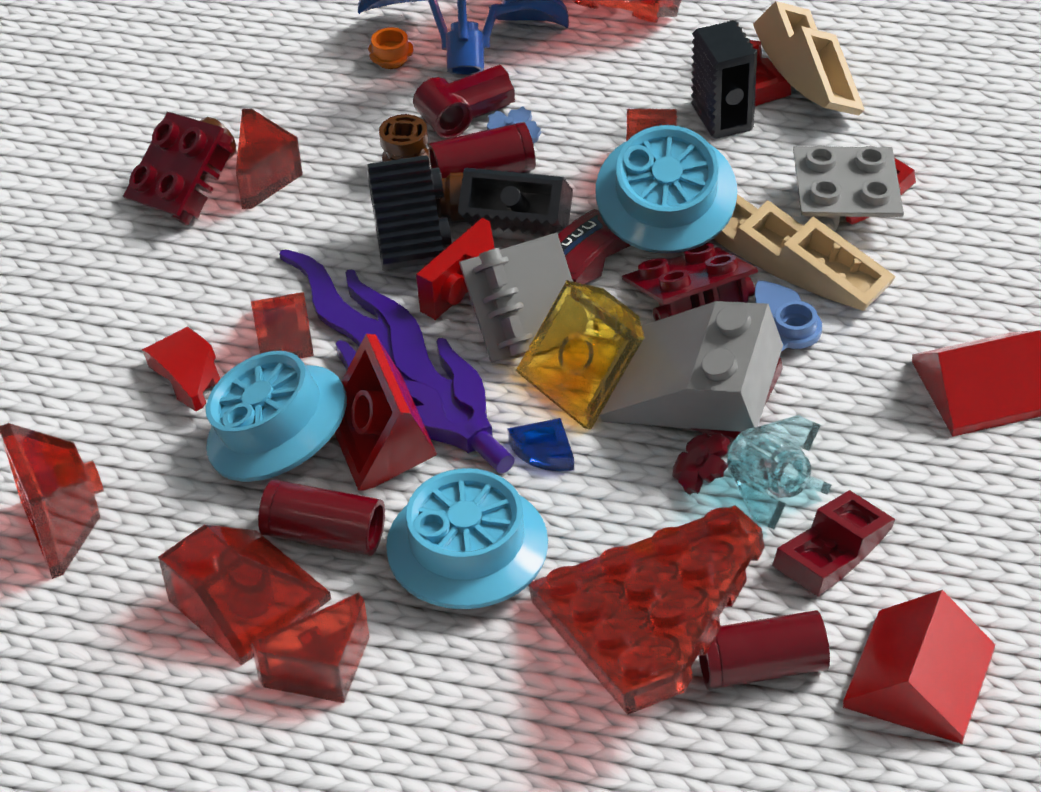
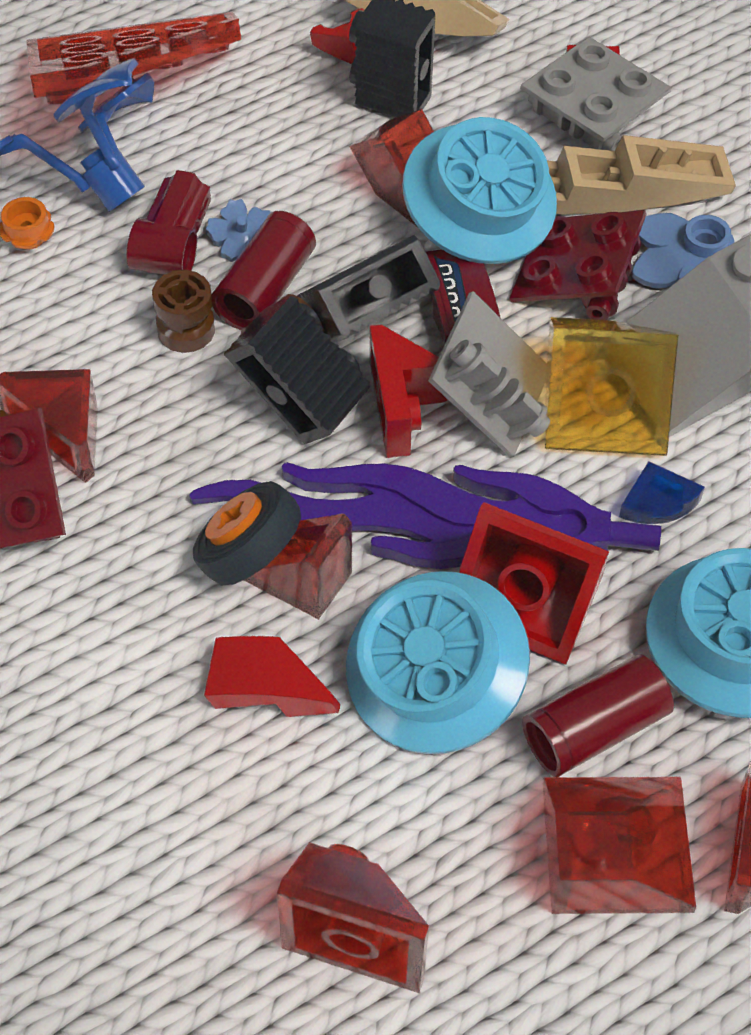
camera: 50 degrees left, 10 degrees up
(264, 279) = (247, 533): none -> black wheel

